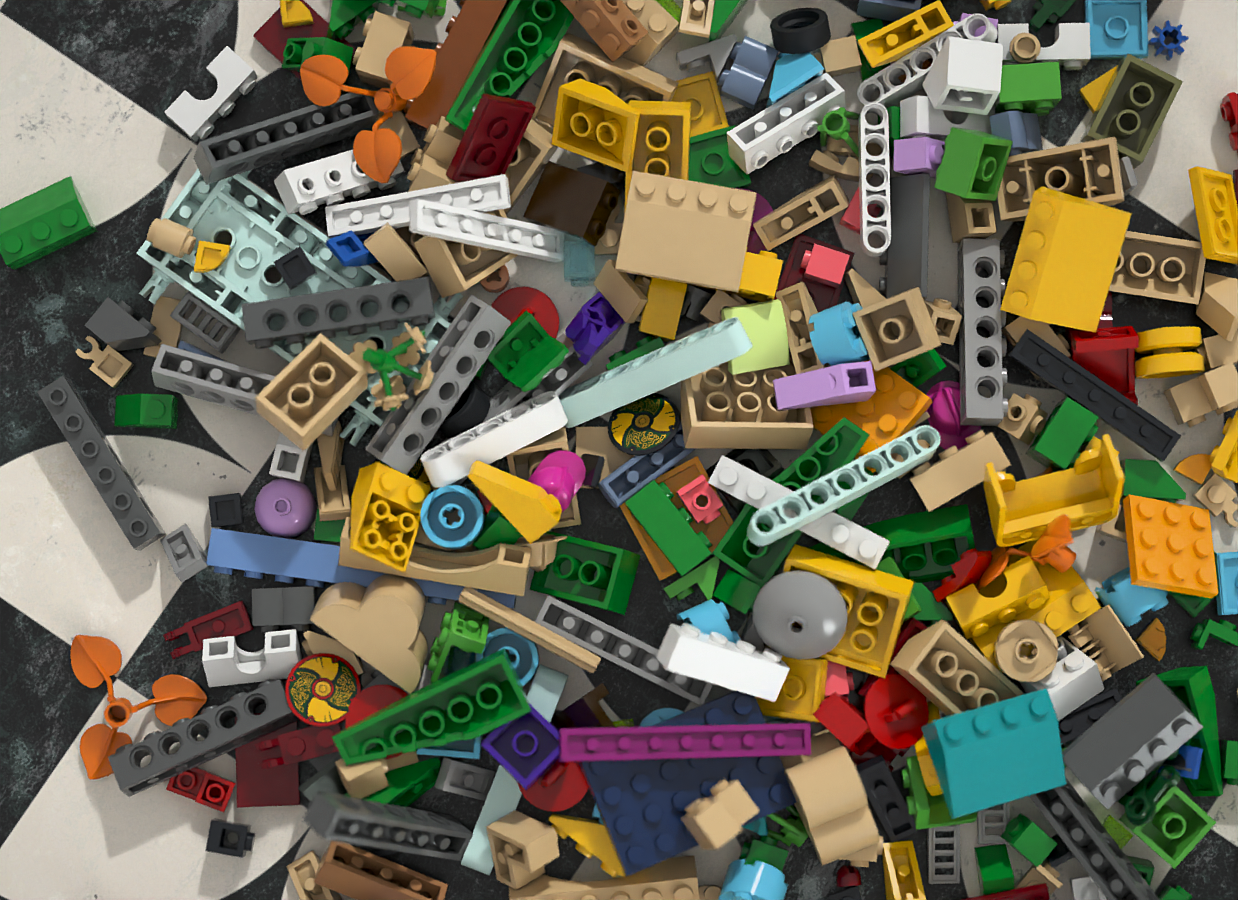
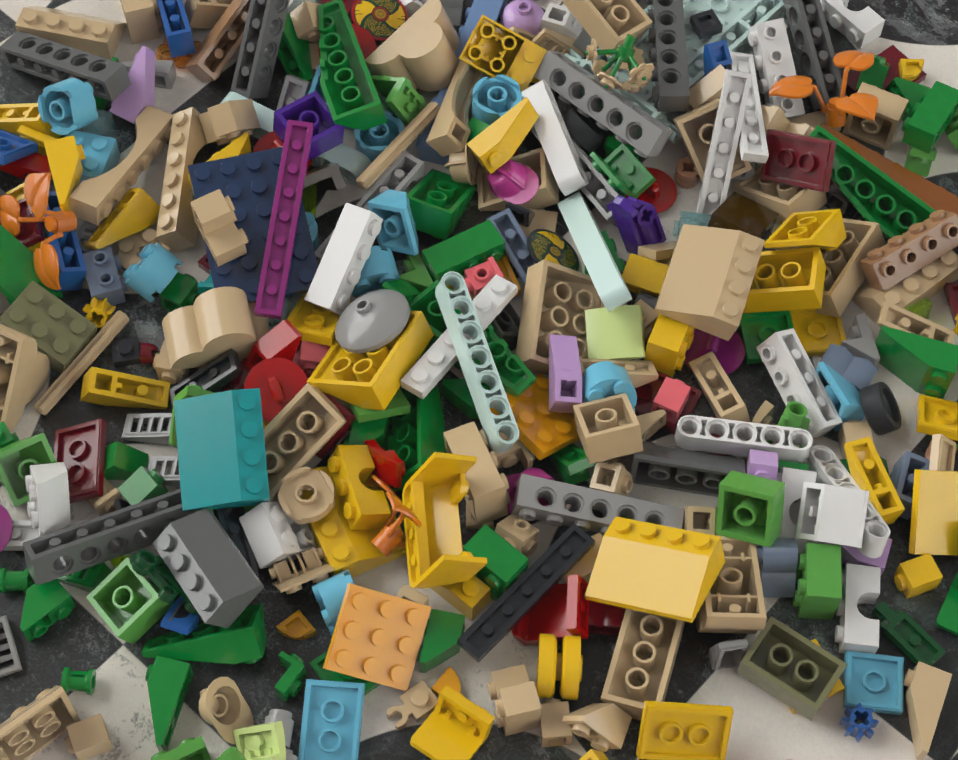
camera: 95 degrees right, 25 degrees down
(643, 614) = (398, 226): none -> medium azure slope
(1024, 48) = (856, 582): tan plate -> none

